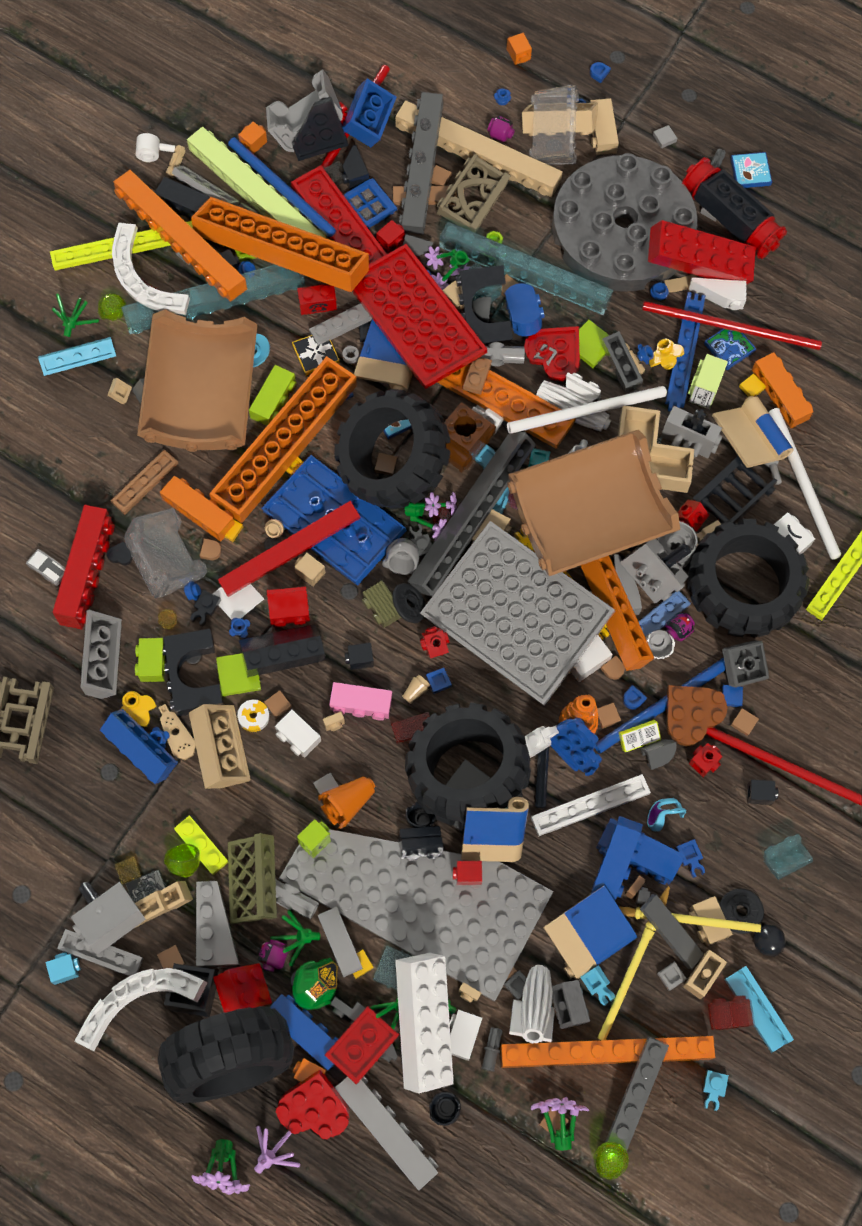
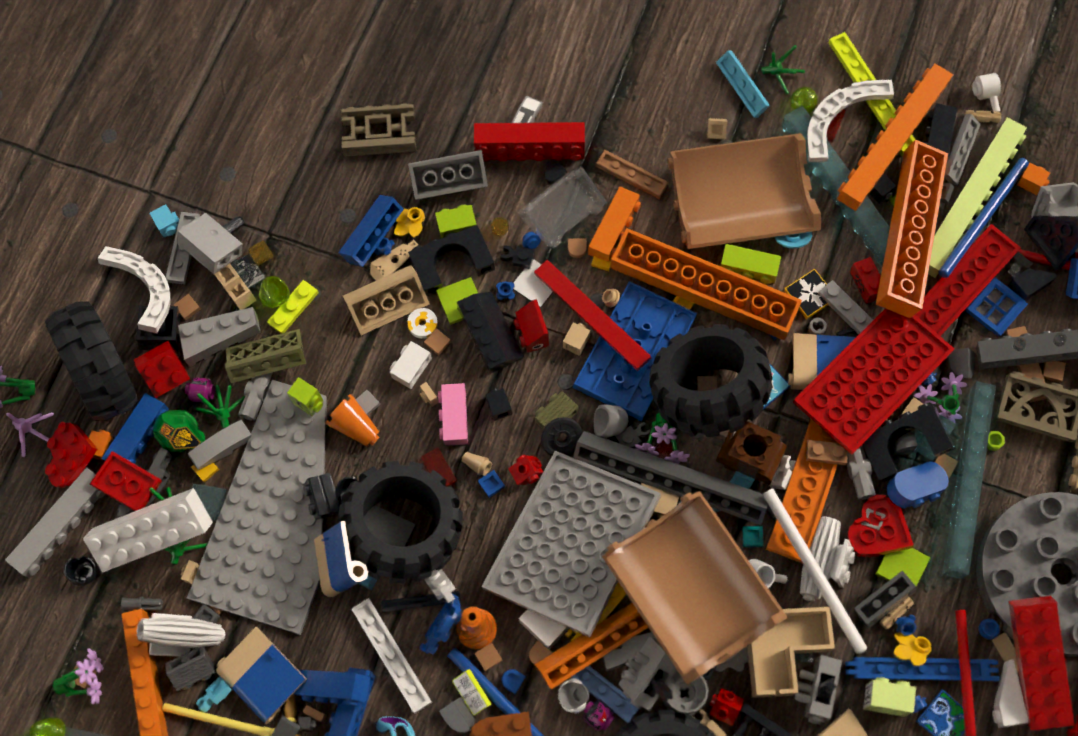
camera: 85 degrees right, 0 degrees up
(245, 267) = (883, 207): blue plate -> none
(390, 236) = (964, 335): red brick -> none
(463, 1033) = (150, 573): white brick -> none
(468, 872) = (299, 546): red brick -> none

